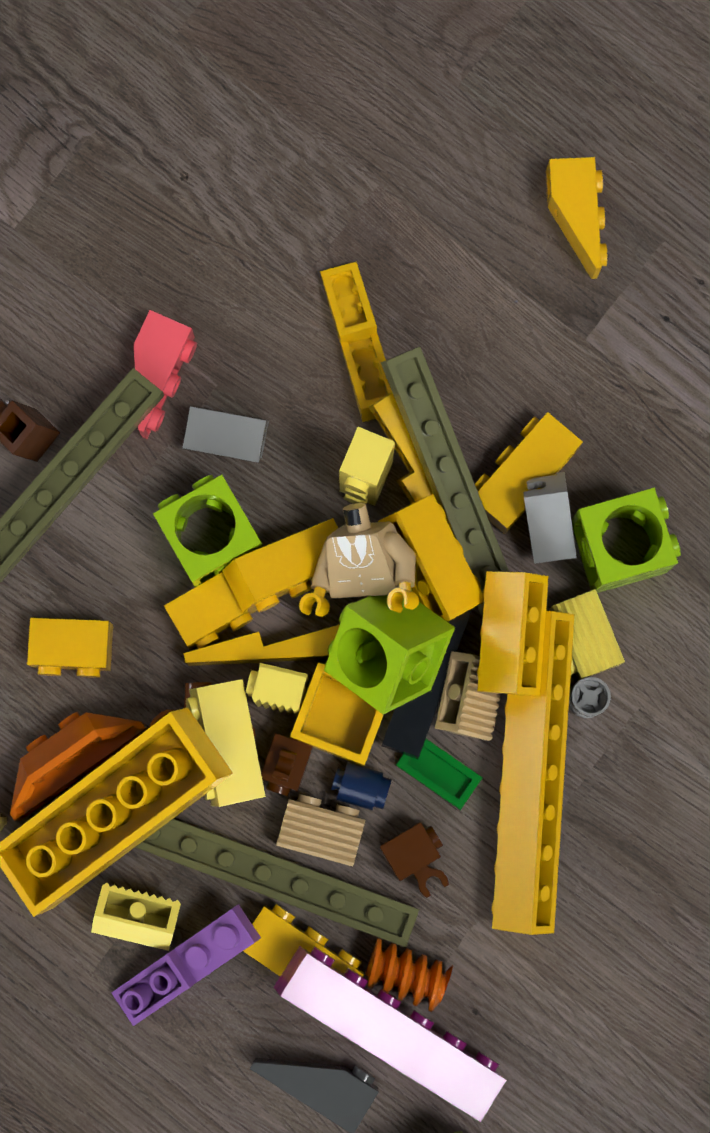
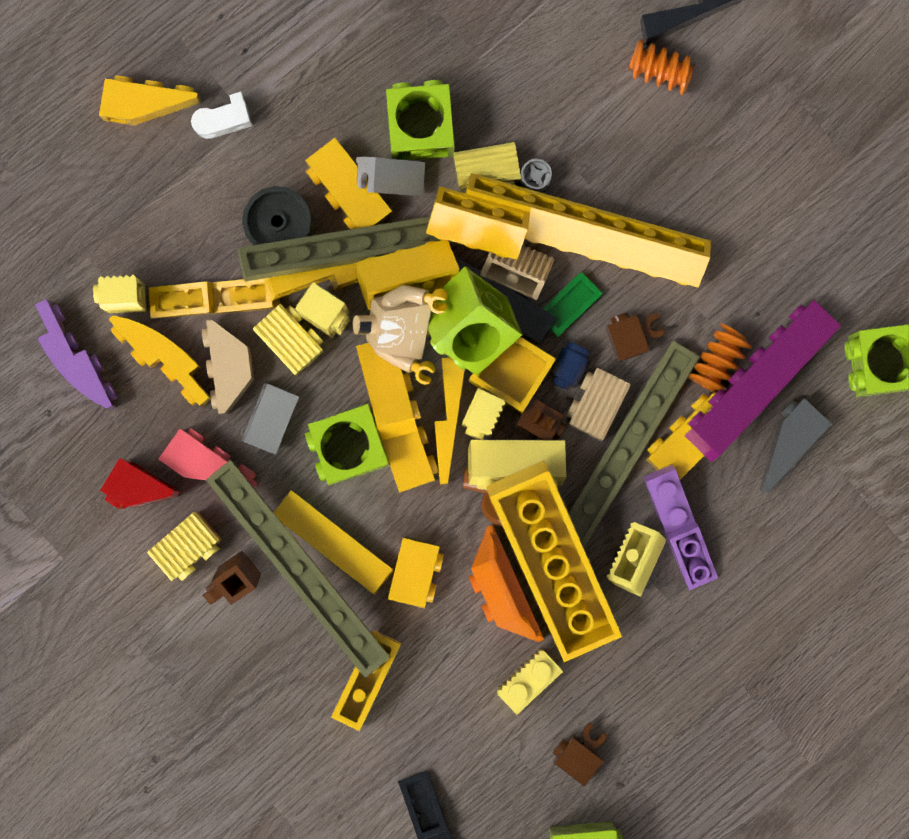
camera: 75 degrees left, 5 degrees up
(52, 364) = (185, 546): none -> light yellow brick
(90, 538) = (333, 542): none -> yellow slope
(114, 288) = (135, 487): none -> red slope
(242, 199) = (79, 368): none -> medium lavender slope
(279, 372) = (228, 365): none -> tan slope
(284, 282) = (153, 348): none -> yellow slope
(325, 438) = (288, 339): none -> light yellow brick
(339, 226) = (120, 294): none -> light yellow brick
(486, 388) = (270, 206): none -> pearl dark grey wheel
(577, 308) = (223, 119): none -> white leg

